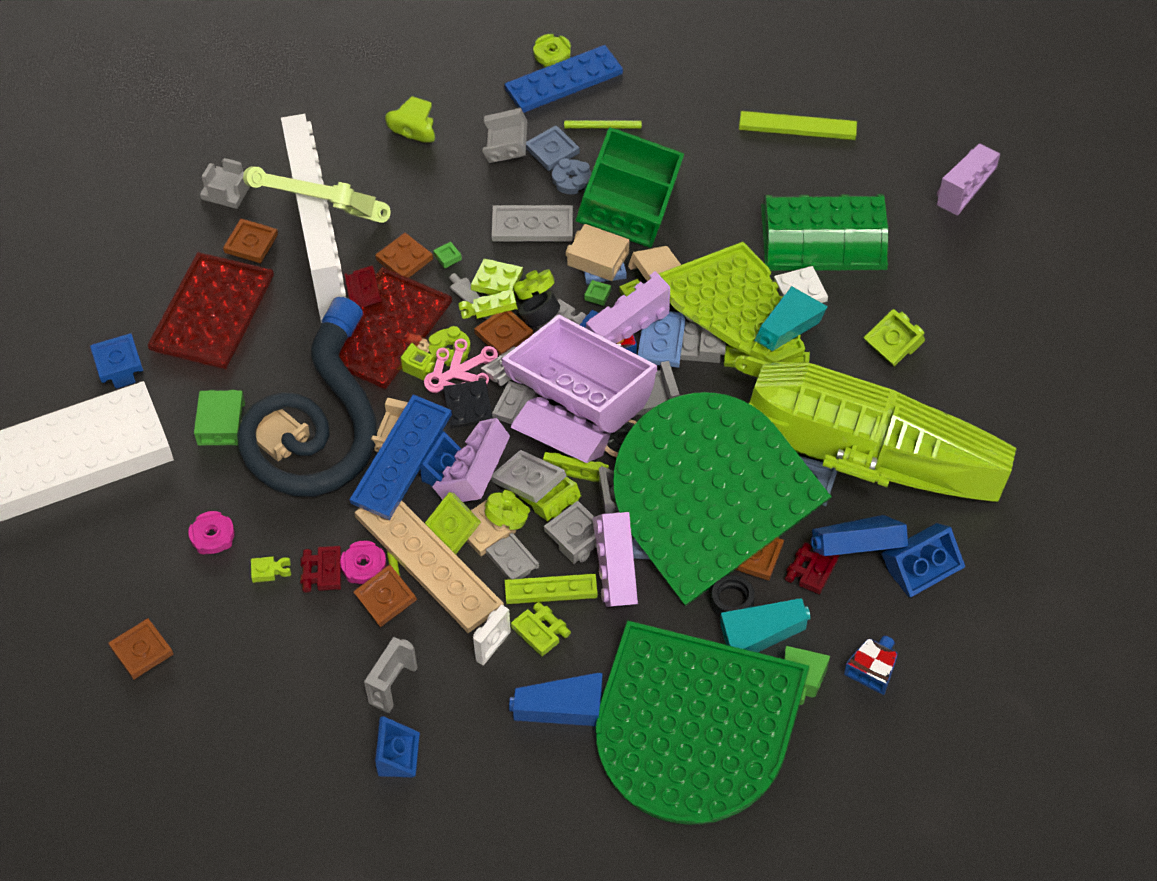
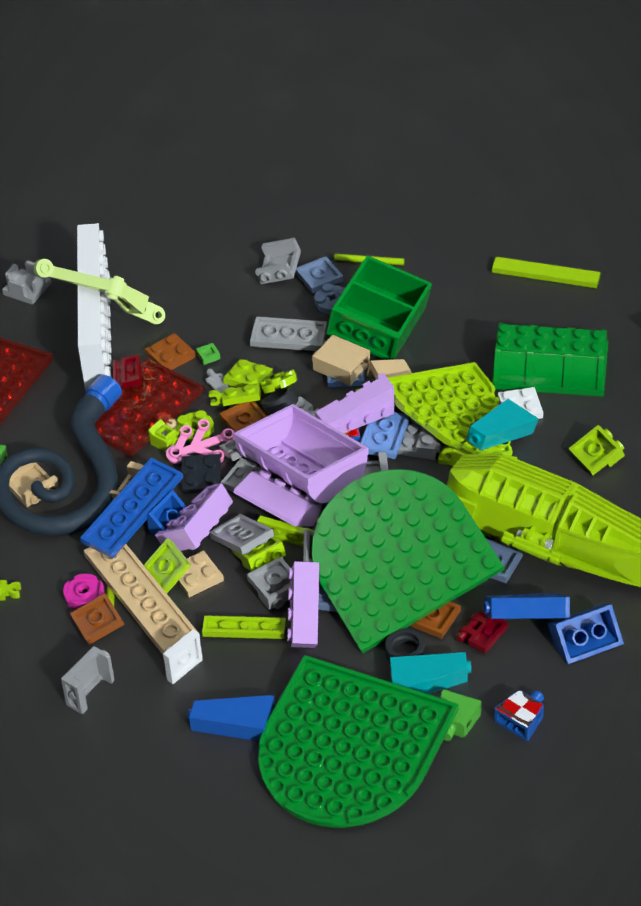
camera: 10 degrees right, 10 degrees down
(250, 240) = (38, 329): dark orange plate -> none
(328, 572) = (52, 594): dark red plate -> none
(396, 749) = (80, 741): blue slope -> none
(412, 120) = (197, 243): lime piece -> none
(512, 558) = (215, 599): light grey plate -> none
(515, 510) = (217, 559): lime plate -> none
(535, 633) = (224, 662): lime plate -> none
(548, 41) = (342, 197): lime plate -> none
(563, 78) = (341, 220): blue plate -> none
(597, 292) = (335, 392): bright green plate -> none

